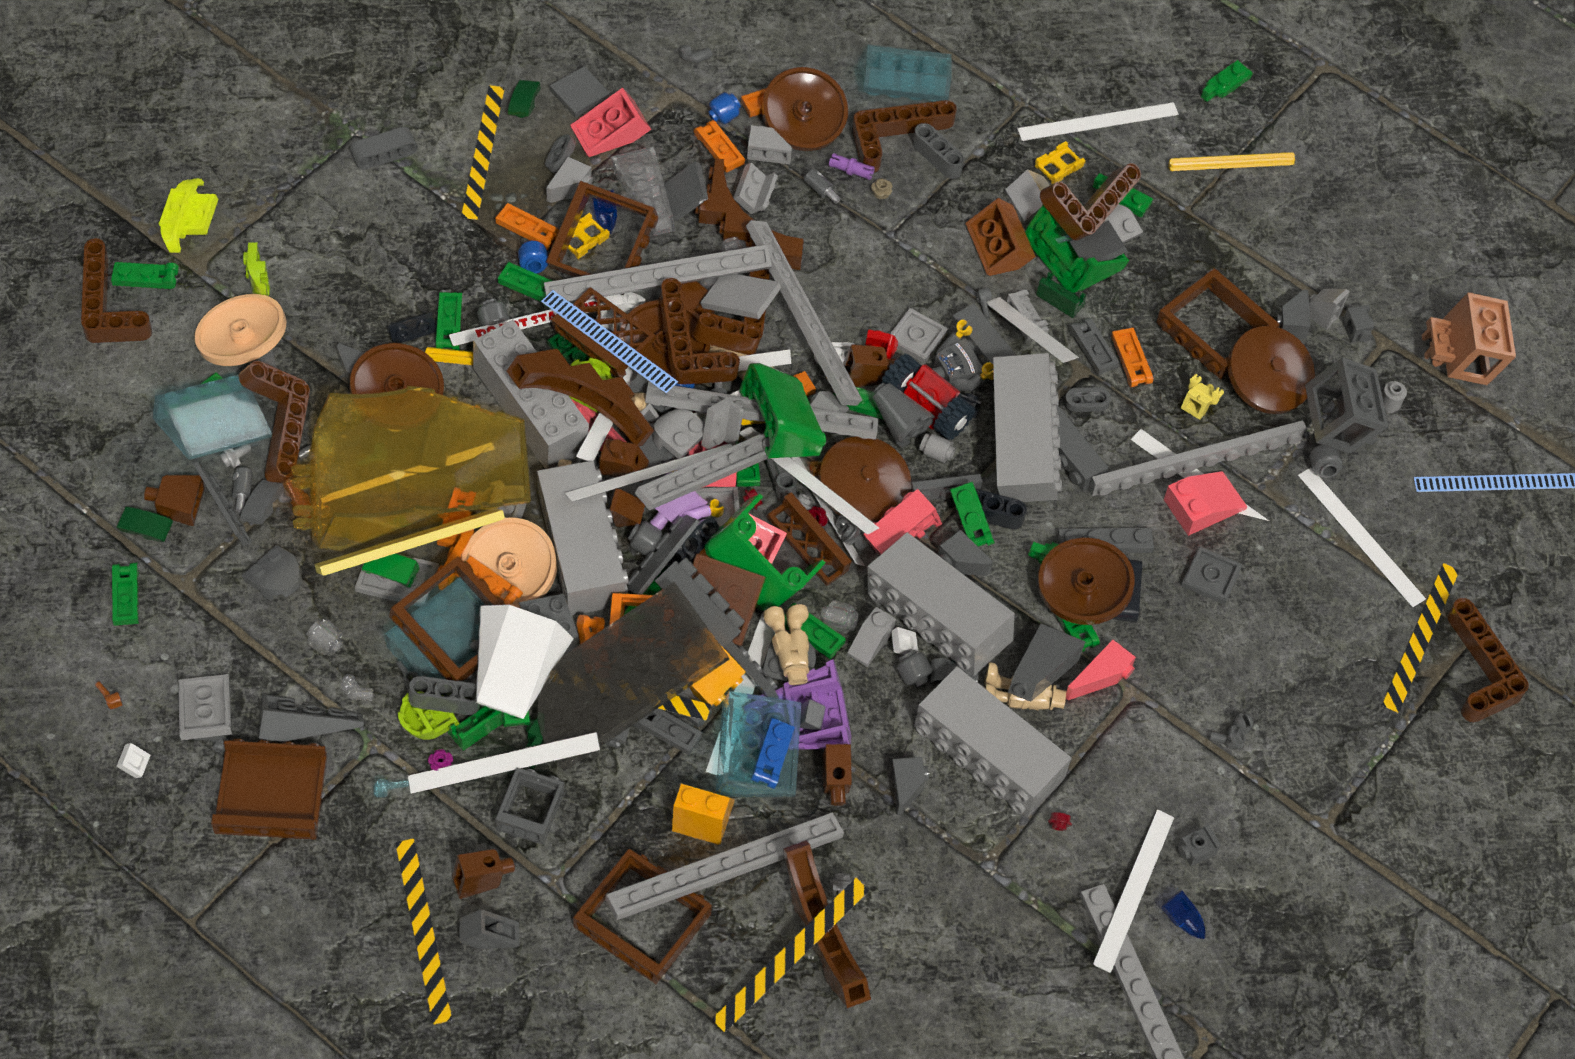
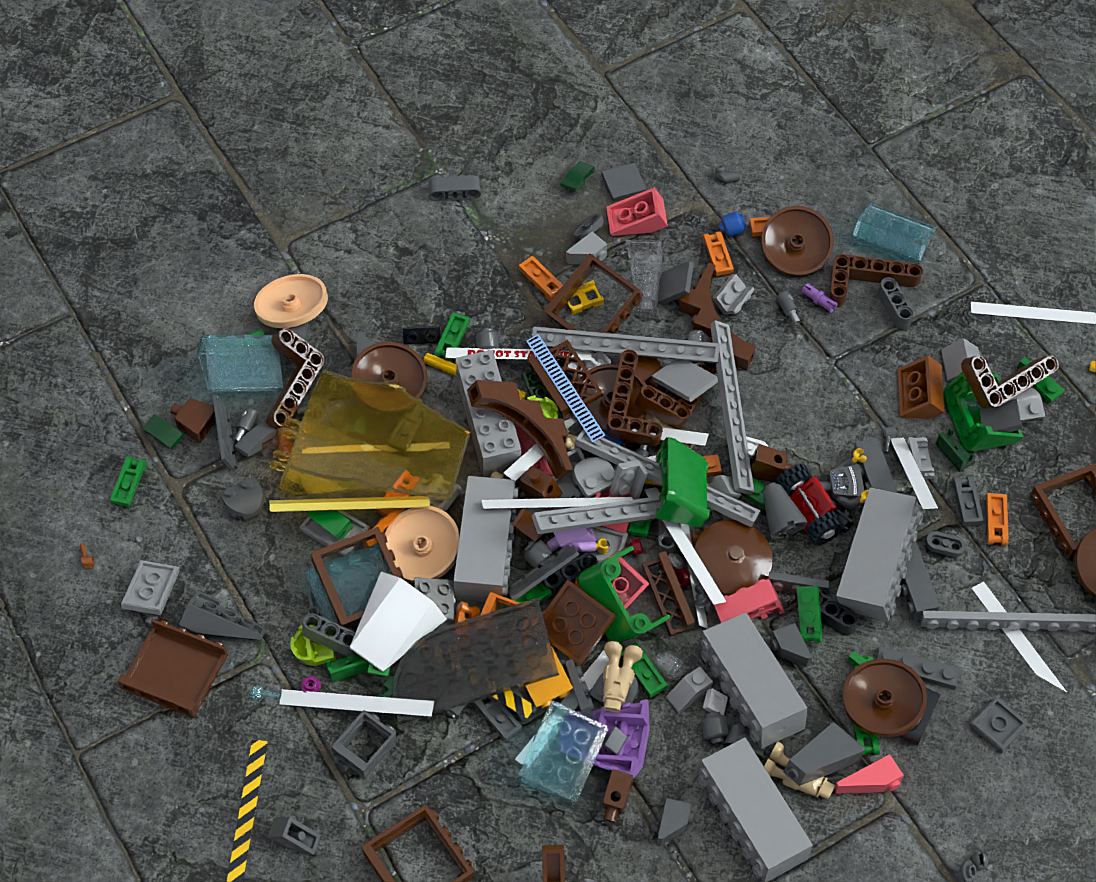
camera: 25 degrees right, 0 degrees up
(97, 323) = (189, 263): reddish brown beam -> none
(133, 760) = (82, 613): white plate -> none
(145, 275) = (239, 239): green plate -> none
(186, 213) = (287, 200): neon yellow plate -> none
(231, 456) = (246, 397): light grey plate -> none
(256, 270) = (319, 258): lime slope -> none
(325, 637) = (260, 559): clear head -> none
(354, 691) = (266, 608): clear arm -> none
(479, 872) = (304, 785): reddish brown torso -> none
(482, 152) = (530, 211): sticker -> none
(495, 582) = (402, 555): orange plate -> none
(523, 281) = (520, 320): green plate -> none
(533, 256) = (535, 303): blue head -> none
(605, 214) = (606, 284): clear blue plate -> none
(701, 814) = (495, 792): light orange slope -> none
(710, 609) = (559, 628): dark grey windscreen -> none
(720, 867) = (494, 843): light grey plate -> none
(768, 146) = (756, 263): light grey slope -> none
(773, 752) = (569, 762): blue plate -> none
(878, 191) = (838, 326): dark tan plate -> none
(881, 339) = (790, 447): red plate -> none
(918, 335) = (822, 450): light grey tile -> none
(937, 447) = (803, 548): light grey brick -> none
(1054, 158) = (993, 335): yellow piece -> none
(1200, 397) = (1043, 569): light yellow piece -> none
(1203, 501) = (1014, 658): coral slope -> none

